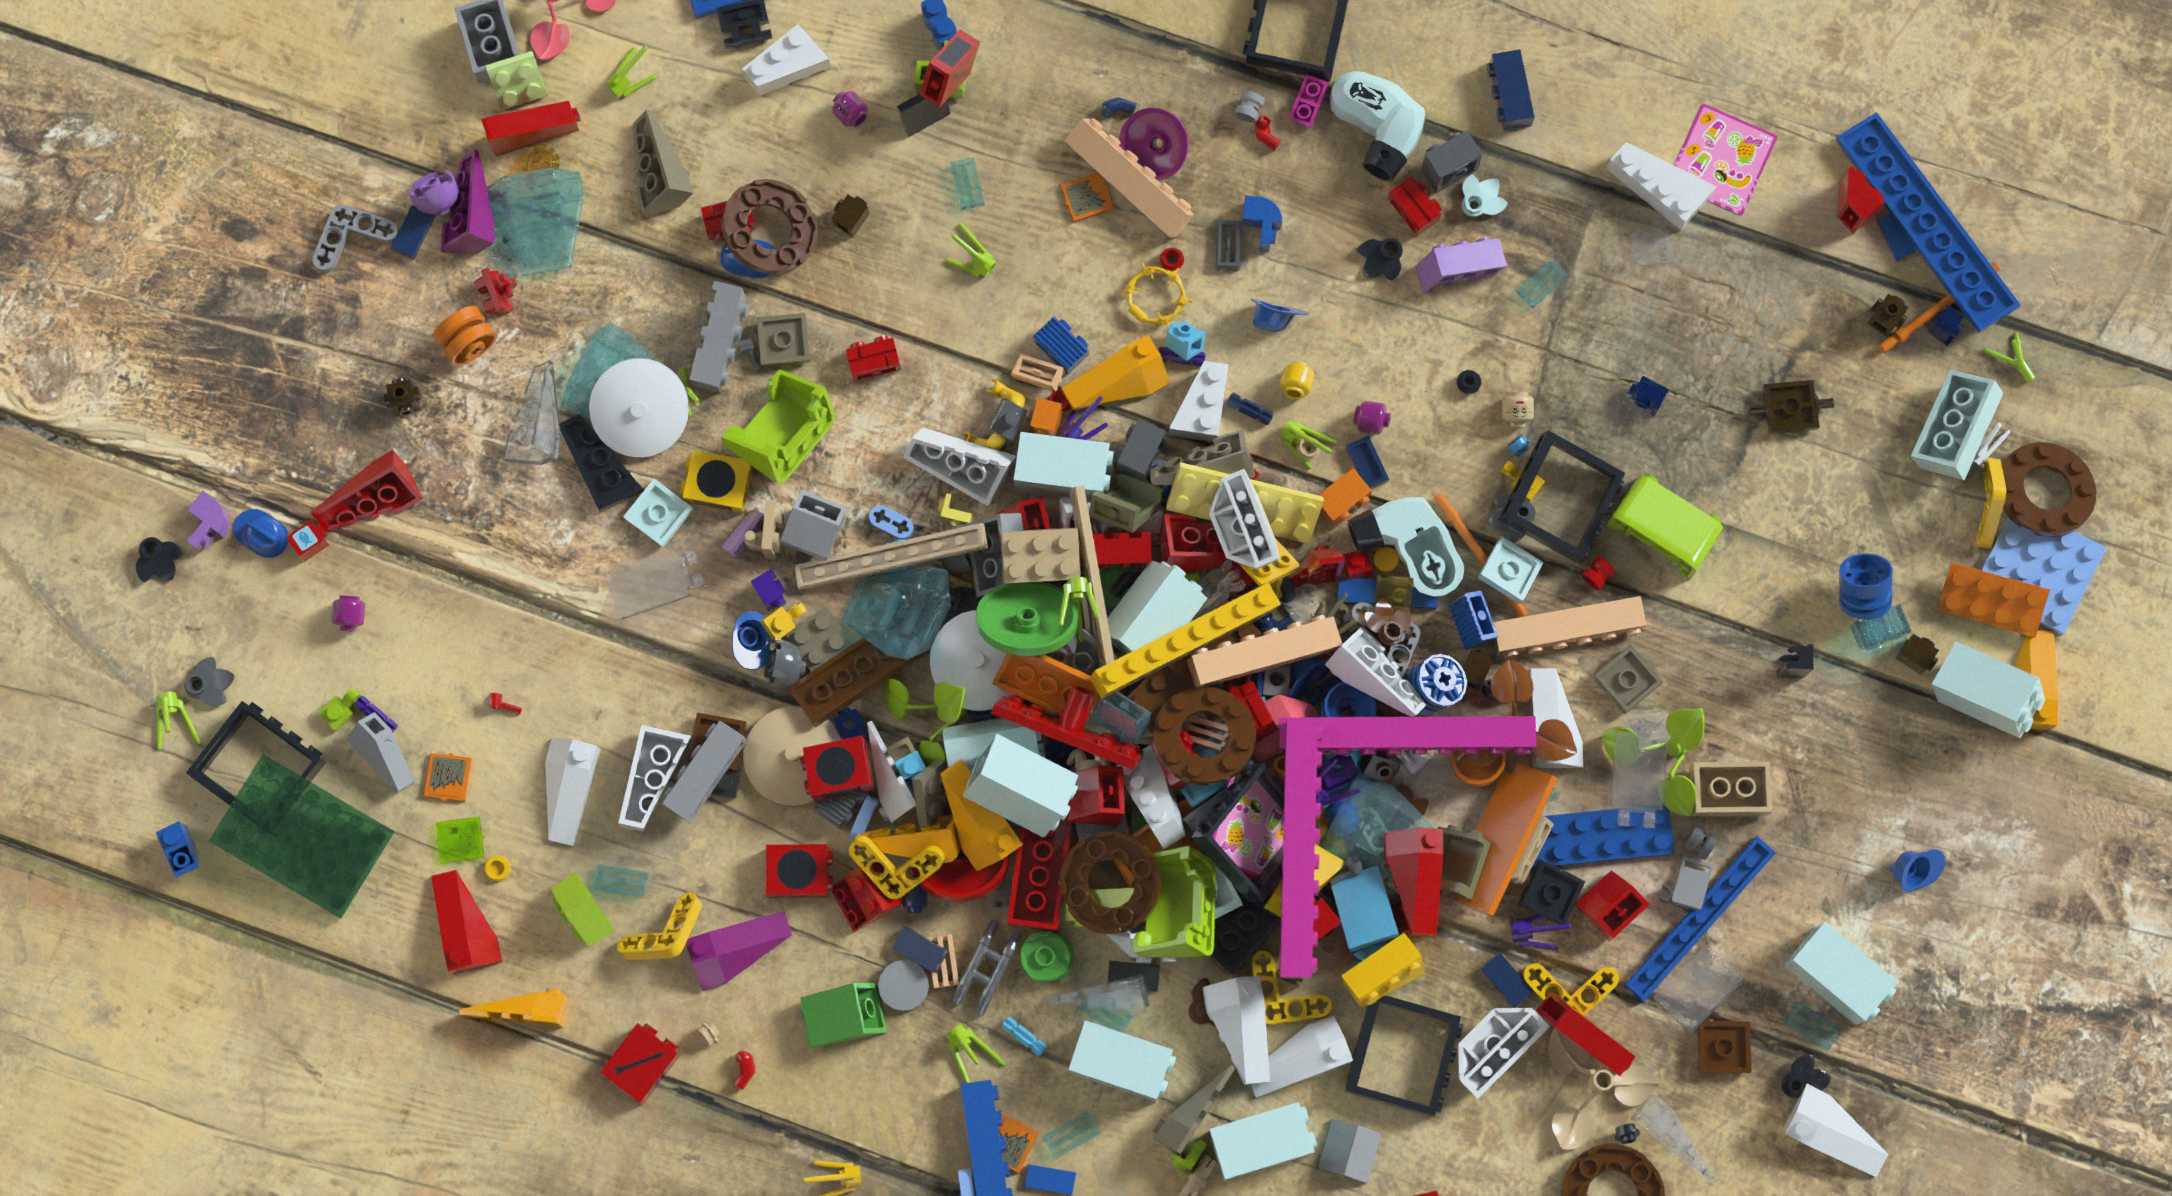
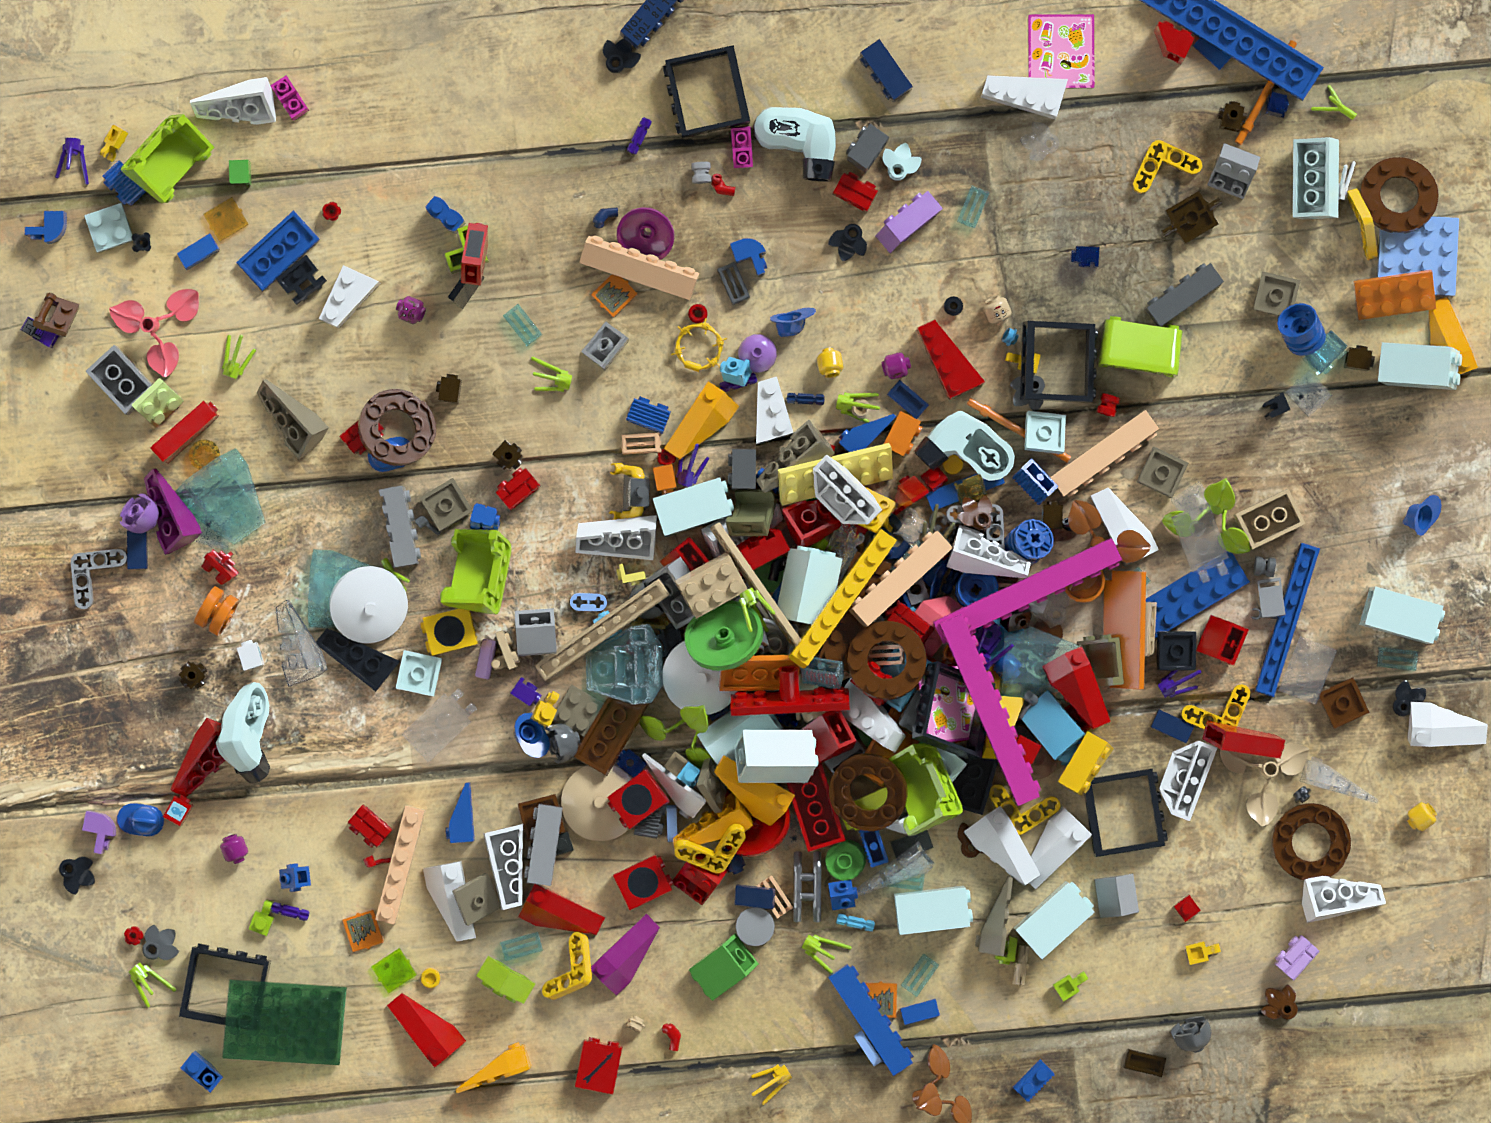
camera: 25 degrees left, 10 degrees up
(184, 665) = (138, 935): none -> red plate
(380, 749) = (309, 936): light grey slope -> none
(399, 676) = (294, 877): none -> blue brick
(423, 479) = (242, 731): none -> light aqua piece
(478, 405) = (250, 655): none -> white brick
(515, 659) = (369, 826): none -> red brick
(528, 719) = (400, 864): none -> light nougat brick
(594, 798) = (476, 899): none -> dark tan plate
(624, 701) = (461, 823): none -> blue slope
(677, 856) = (555, 911): none -> red wedge
(818, 368) = (484, 518): none -> blue brick
(880, 316) = (501, 453): none -> dark brown brick
(1024, 995) = (842, 894): none -> blue brick
(1050, 248) = (605, 345): none -> light grey slope
(1087, 955) = (874, 847): none -> blue brick
(1198, 37) = (639, 135): none -> dark purple axle
(1222, 331) = (759, 351): none -> medium lavender cylinder
(1302, 476) = (863, 435): none -> blue slope
(1436, 446) = (950, 364): none -> red wedge
(1744, 489) = (1183, 295): none -> dark grey brick
(1789, 326) = (1164, 157): none -> yellow beam
(1840, 668) = (1308, 393): none -> clear piece
(1851, 535) = (1275, 293): none -> dark tan plate
(1863, 376) = (1233, 171): none -> light grey slope

